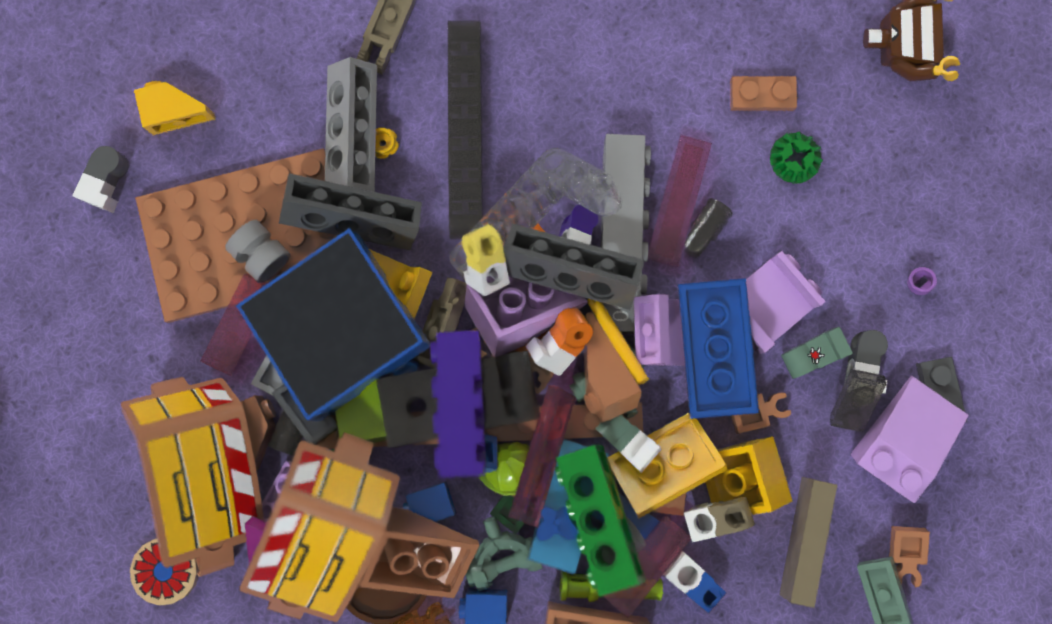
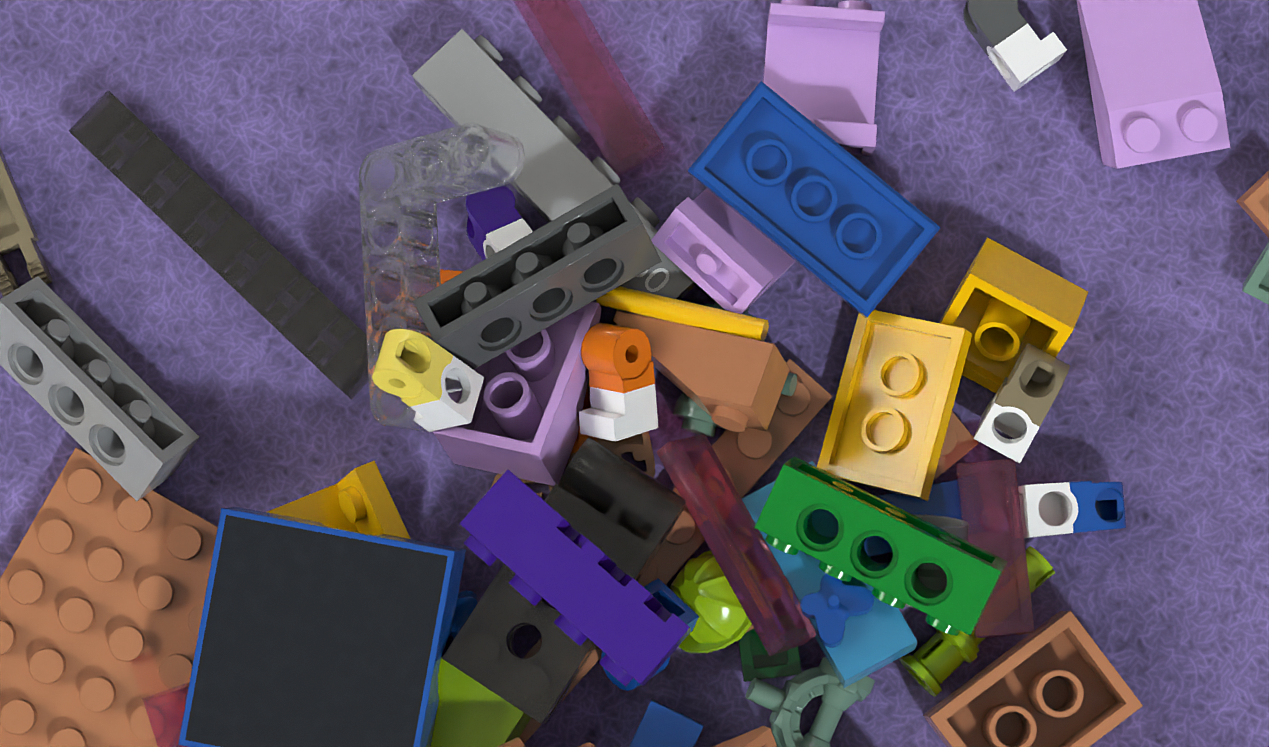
camera: 45 degrees left, 0 degrees up
(262, 256) = (131, 655): light grey wheel -> none
(336, 207) = (183, 495): dark grey brick -> none
(391, 145) = (157, 358): yellow plate -> none
(443, 315) = (443, 503): dark tan hinge -> none
(629, 441) = (822, 420): leg -> none
(707, 227) = (651, 64): clear smoke hinge -> none
(749, 422) = (946, 243): nougat plate -> none
(808, 542) = (1154, 320): dark tan piece -> none
(816, 352) = (937, 83): sand green leg -> none
(857, 400) = (1043, 92): clear smoke plate -> none

